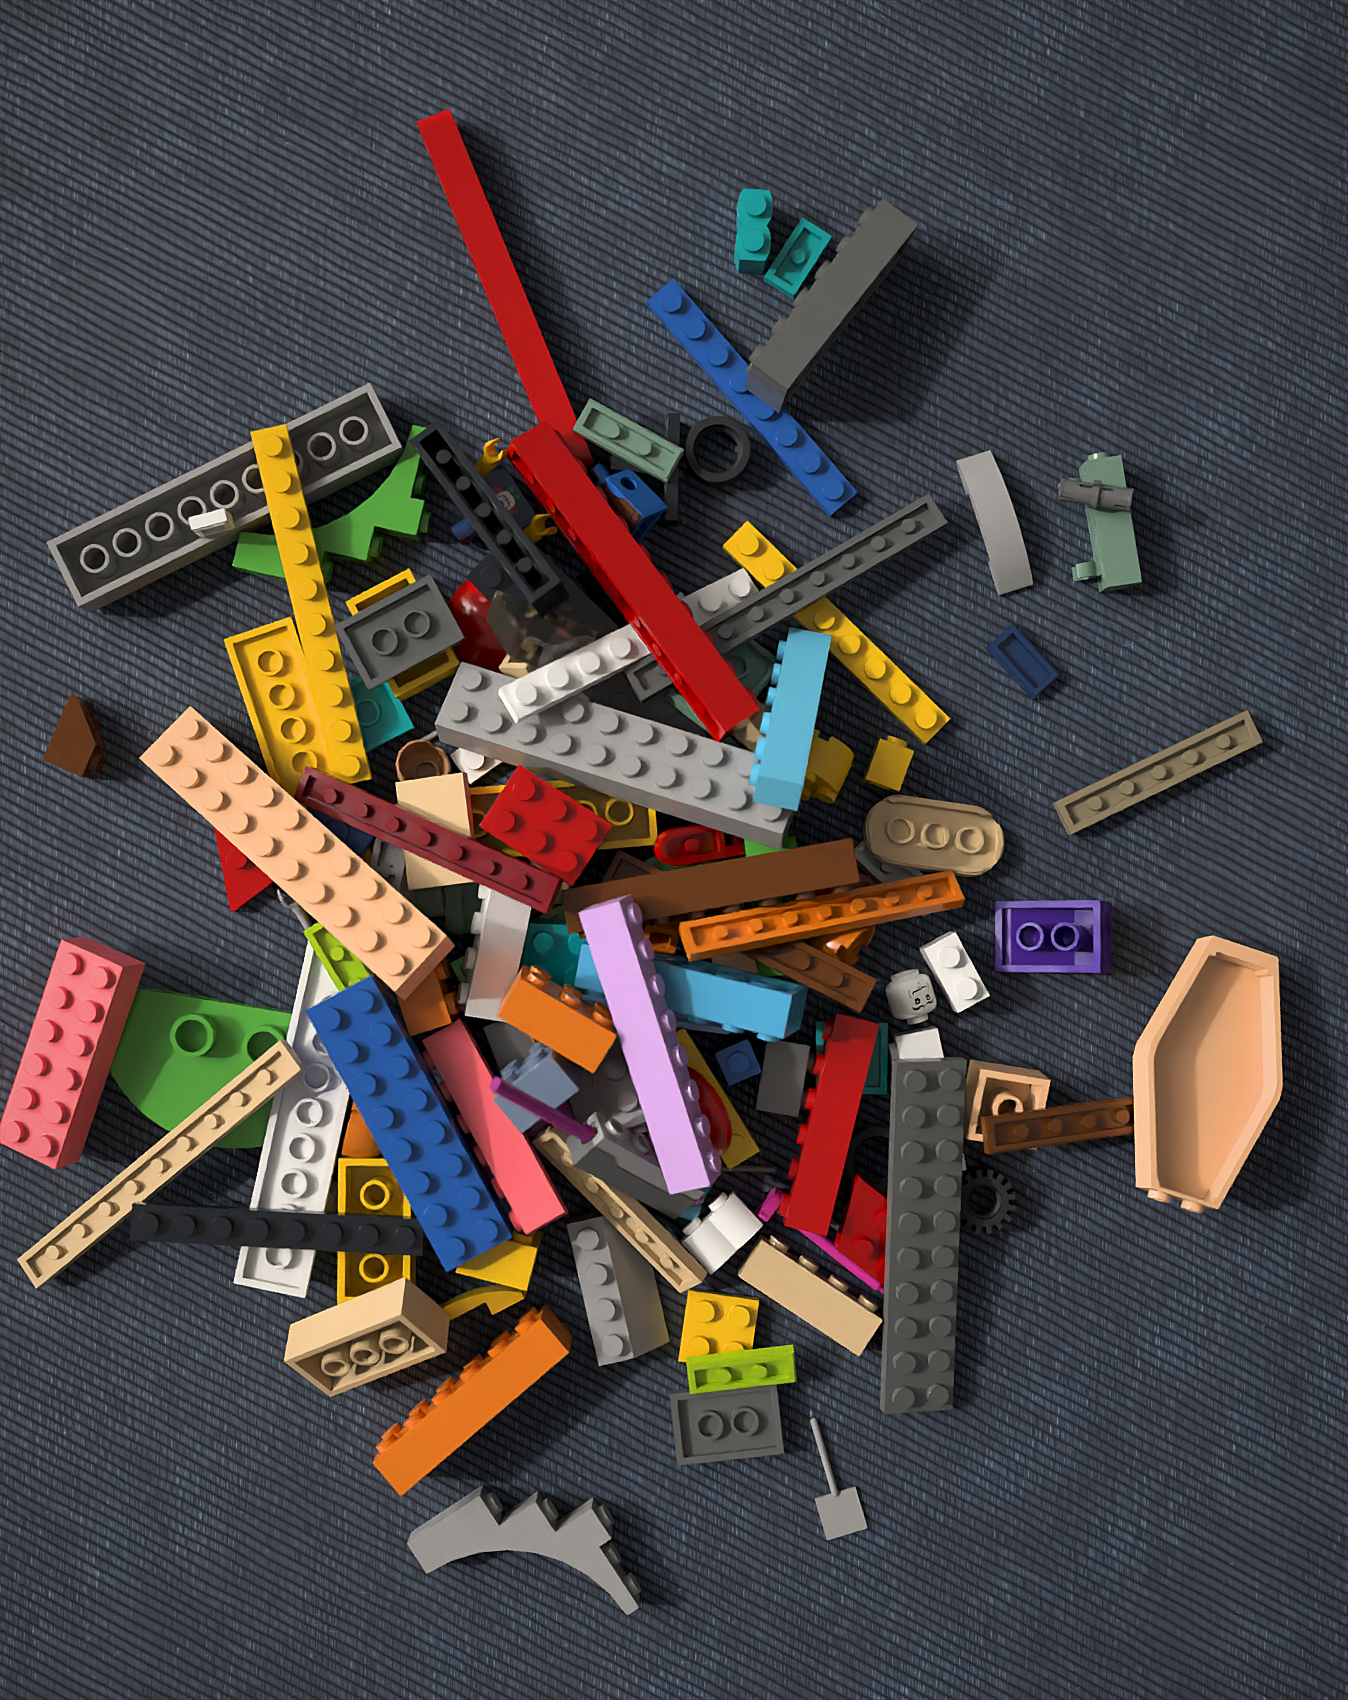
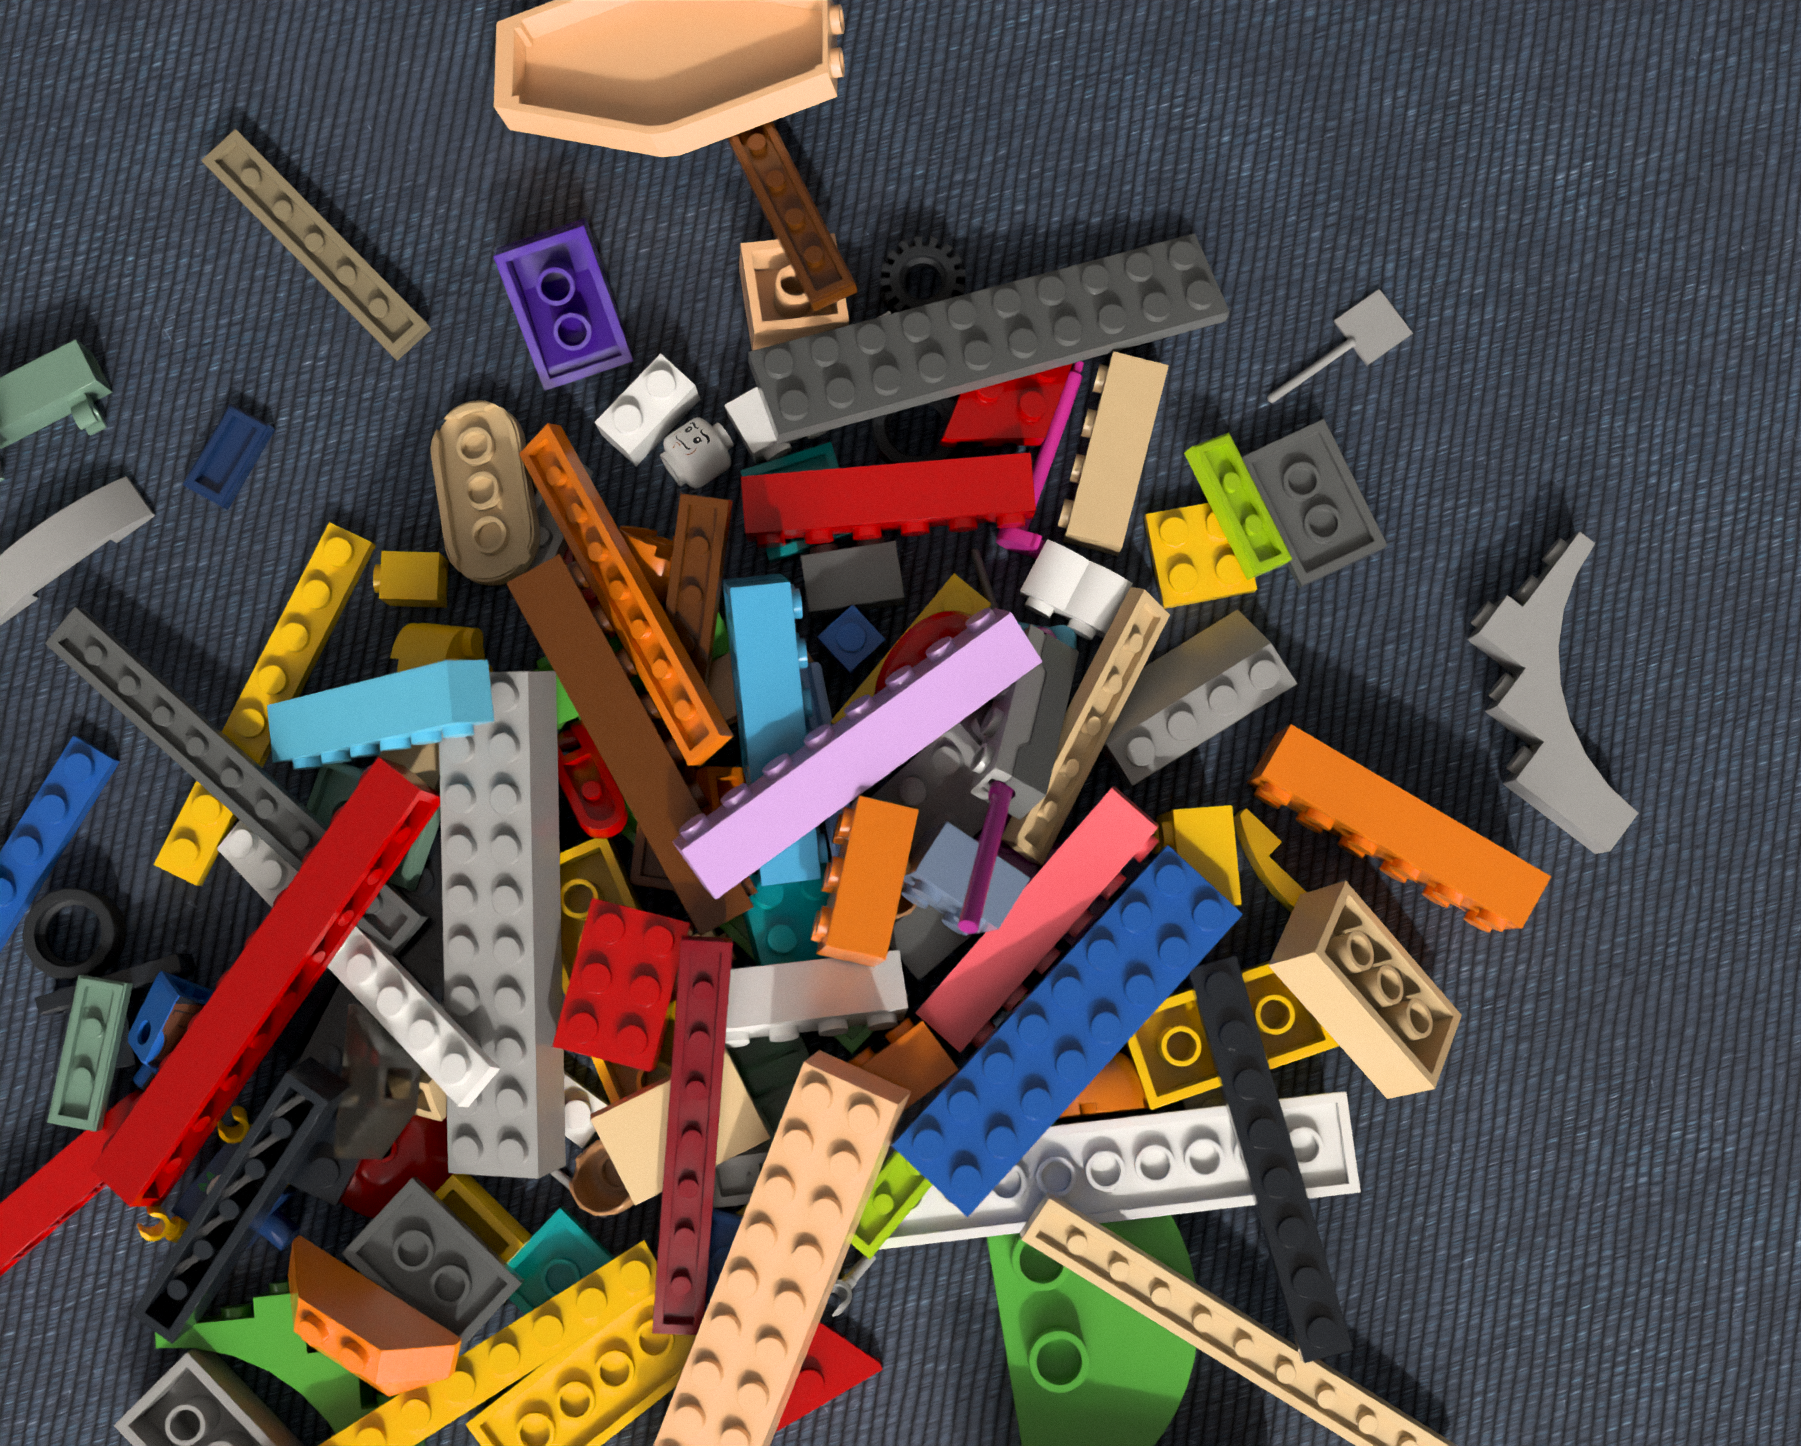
camera: 105 degrees left, 5 degrees down
(377, 574) = (365, 1324): none -> orange wedge

